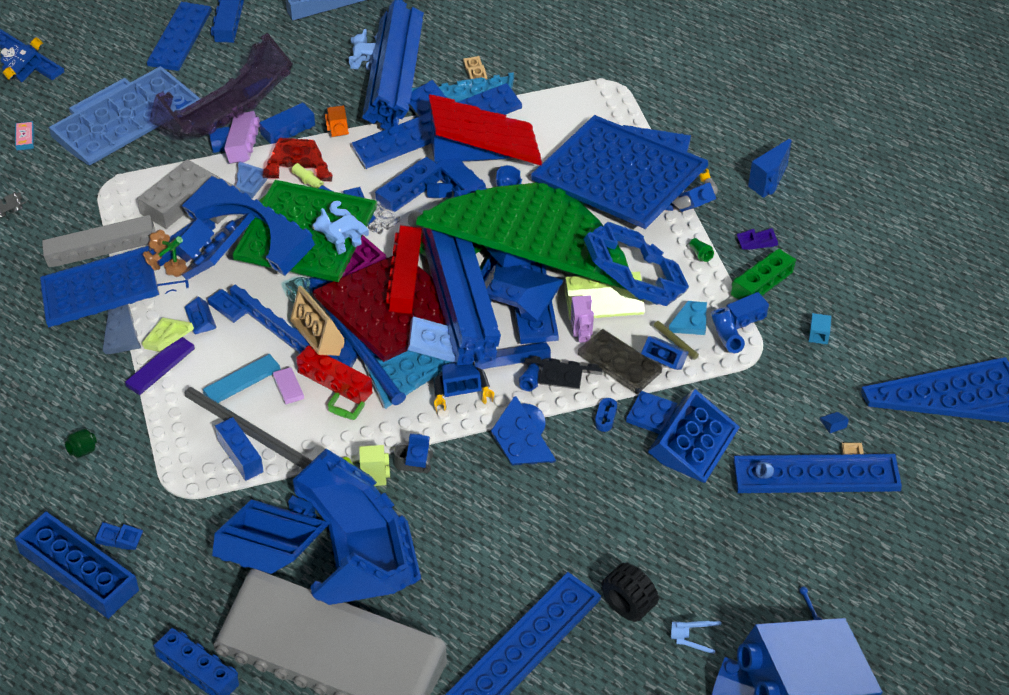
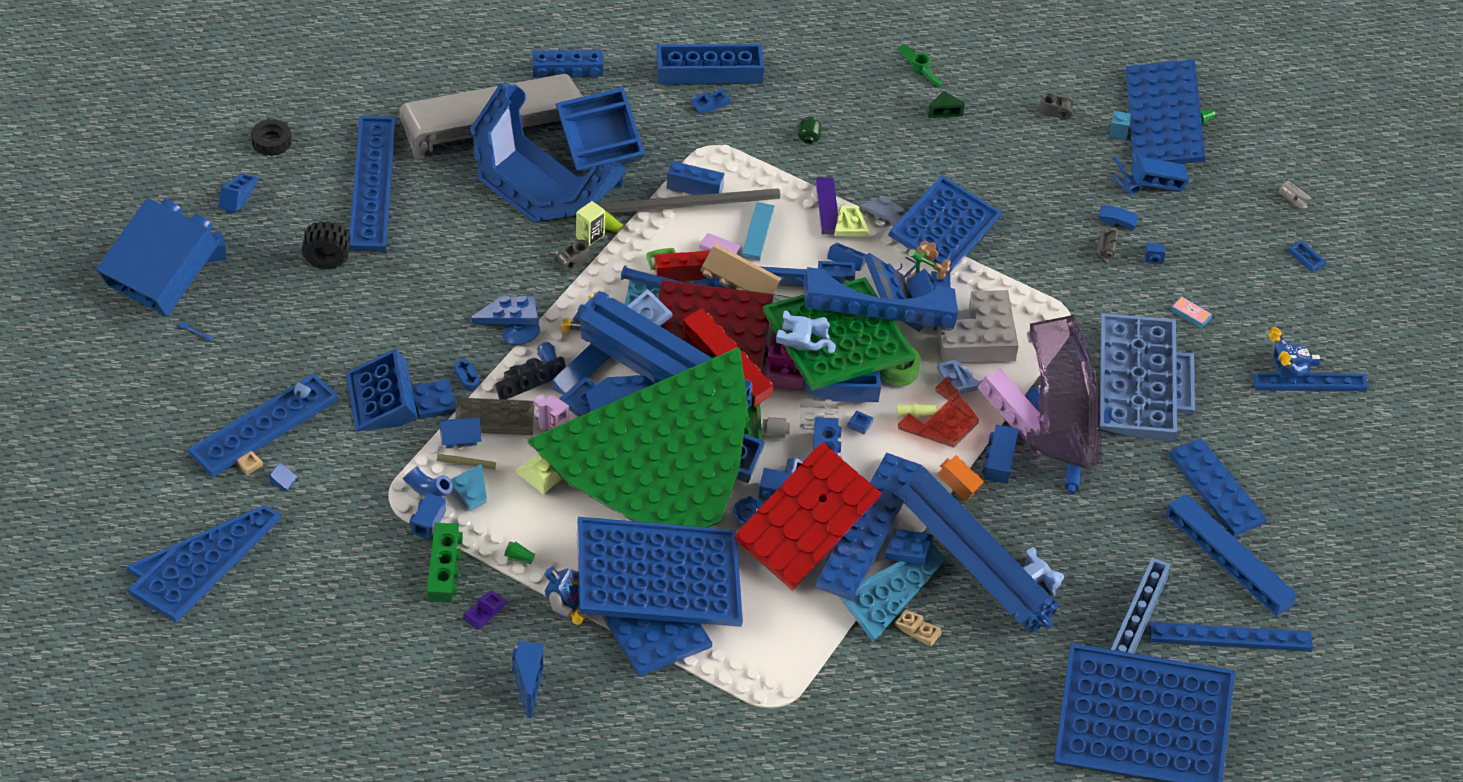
camera: 135 degrees right, 0 degrees up
(98, 241) = (995, 256): light grey brick -> none
(417, 450) = (568, 246): blue bracket -> none
(607, 236) = (588, 460): blue plate -> none
(680, 631) = (273, 258): light blue plant -> none
(820, 328) = (356, 547): dark azure brick -> none

